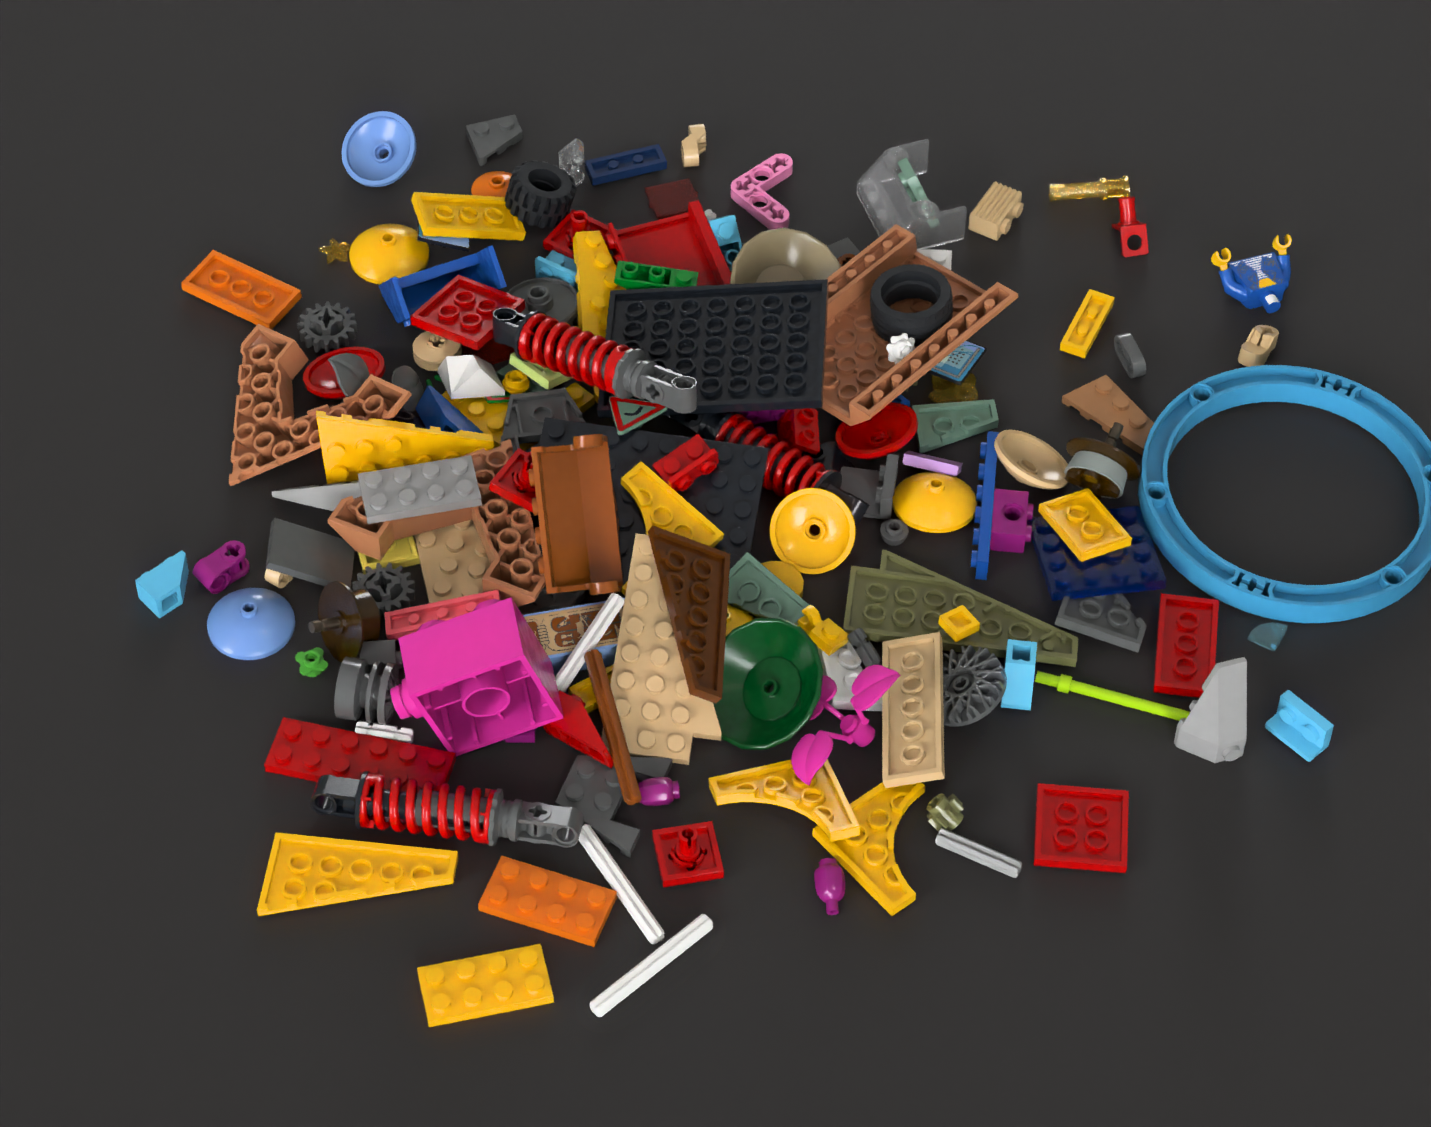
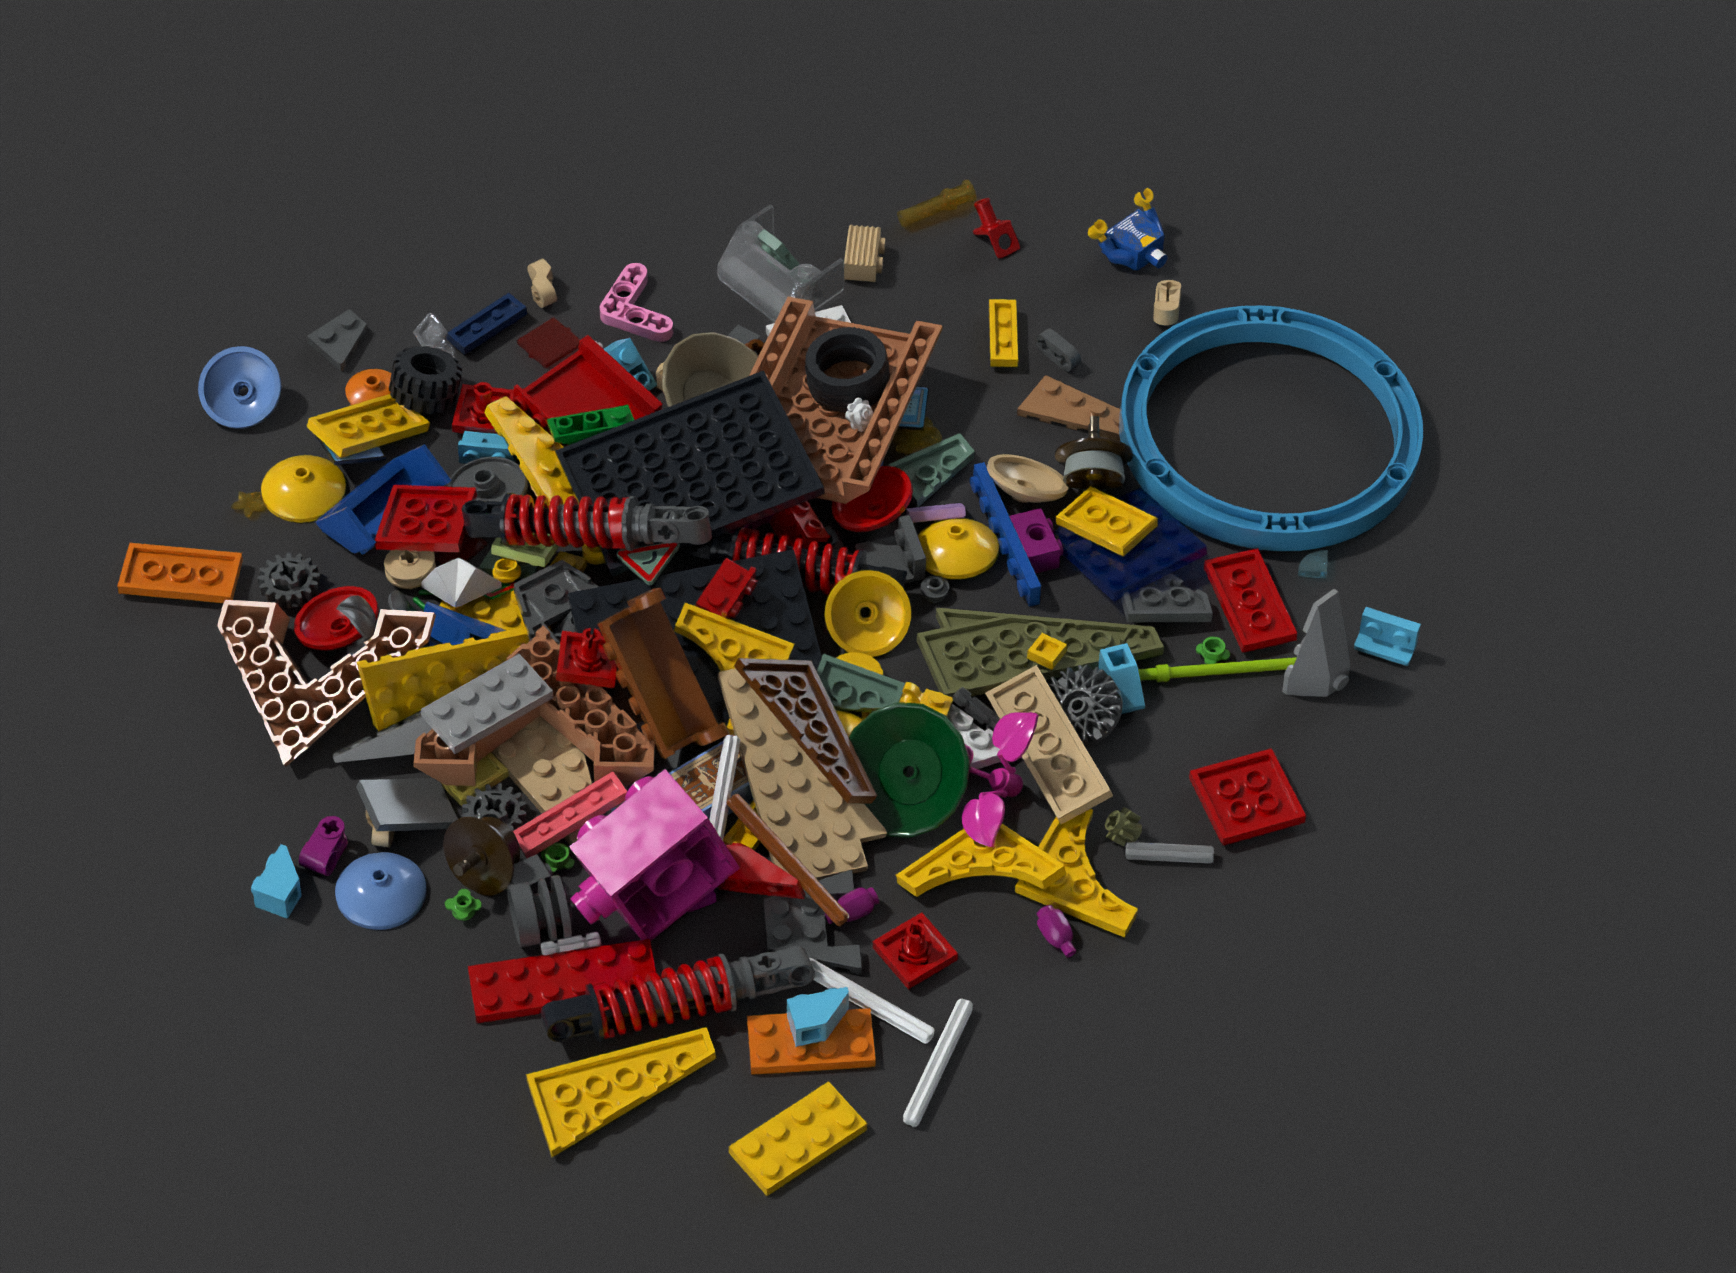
camera: 25 degrees left, 0 degrees up
(558, 877) = (816, 1014): none -> medium azure slope
(1127, 674) = (1213, 650): none -> bright green plate

